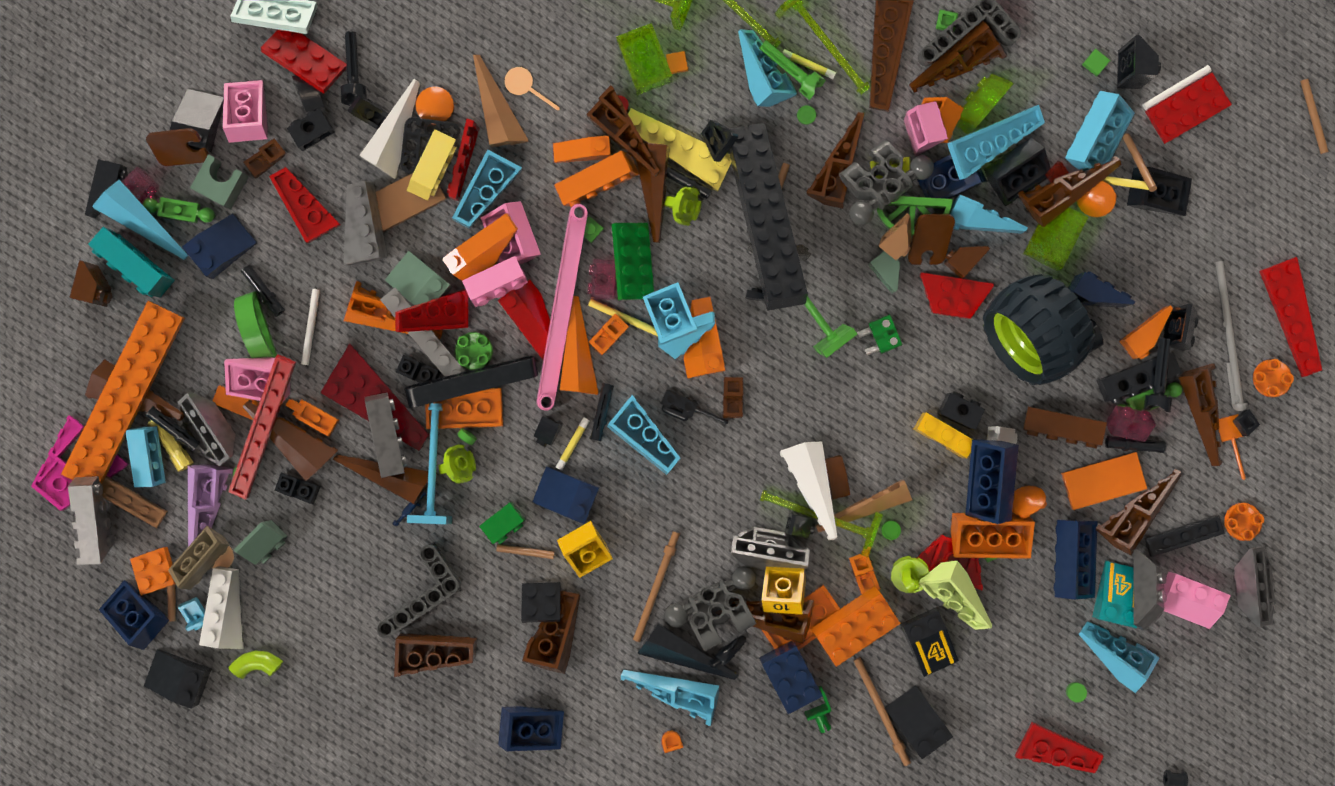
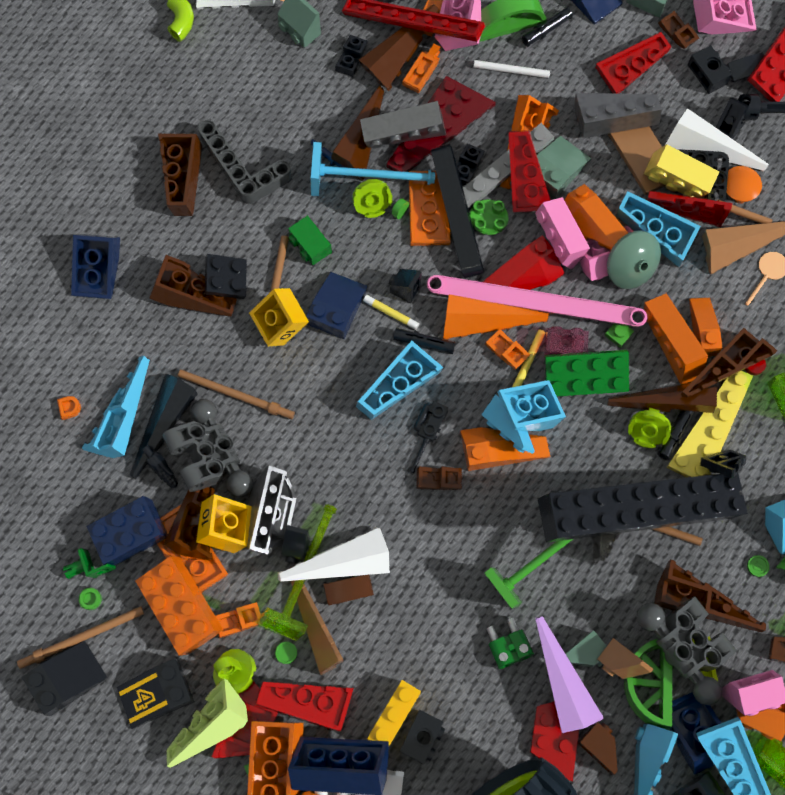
camera: 90 degrees right, 15 degrees down
(467, 105) = (749, 215): none -> medium nougat bar
(522, 214) = (633, 259): none -> sand green dish
(848, 706) = (90, 599): none -> bright green tile
(928, 283) = (572, 700): none -> lavender wedge
(932, 234) = (629, 701): reddish brown piece -> none
(936, 503) = (309, 703): none -> red wing

